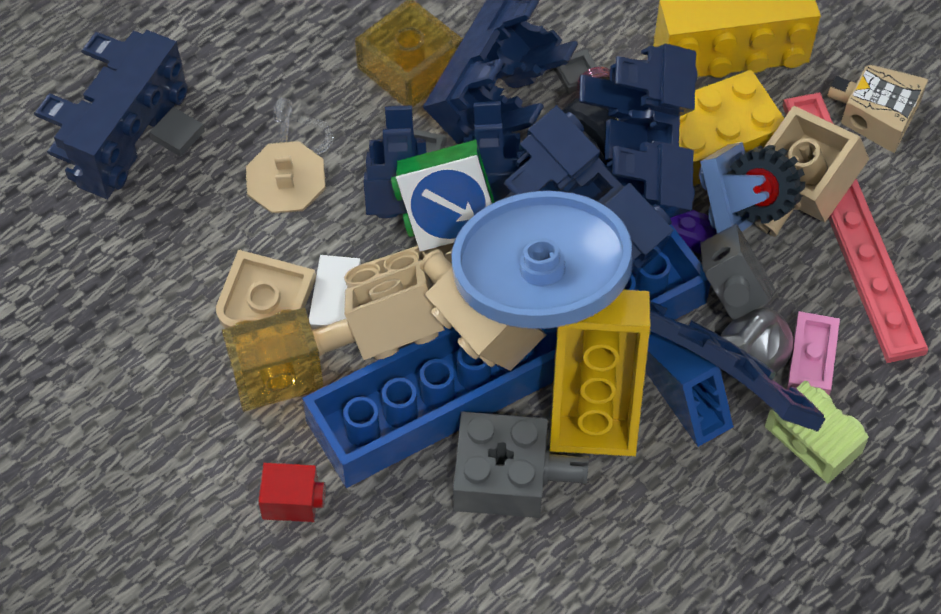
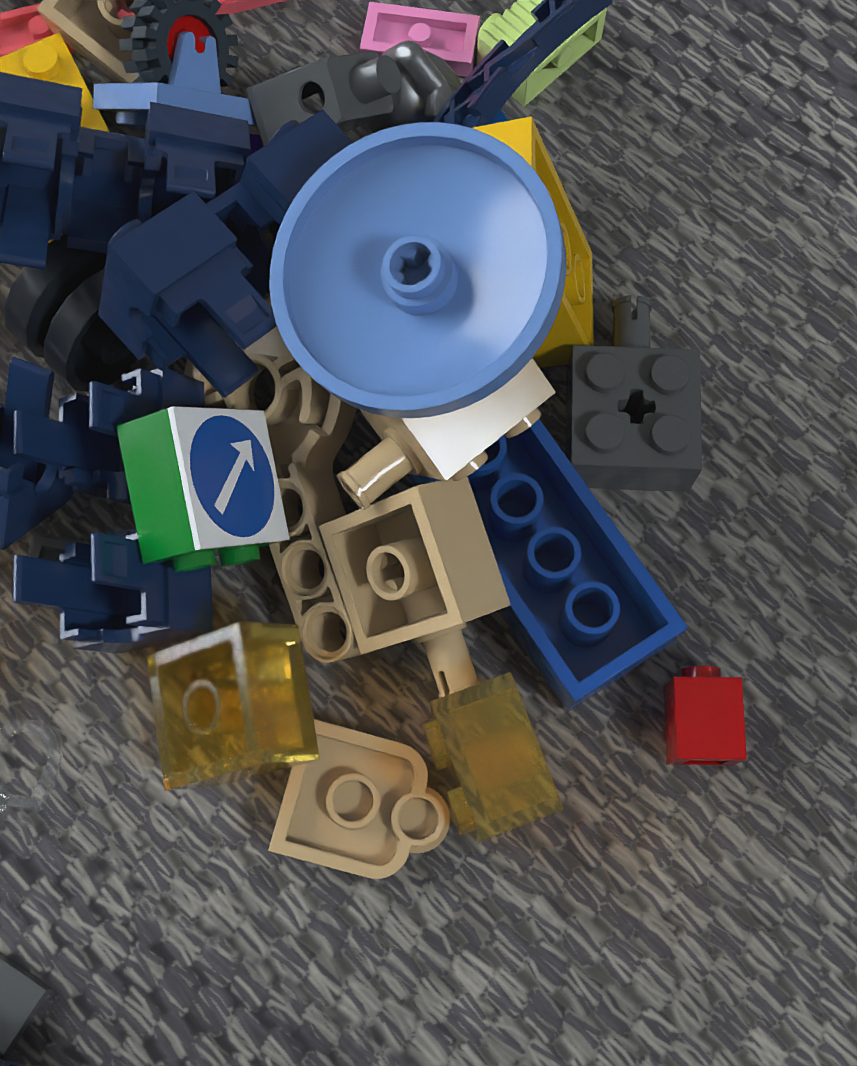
camera: 90 degrees left, 15 degrees up
(285, 177) = (103, 793): tan piece -> none
(320, 226) = (232, 705): none -> clear yellow brick
(329, 290) = (356, 690): white tile -> none

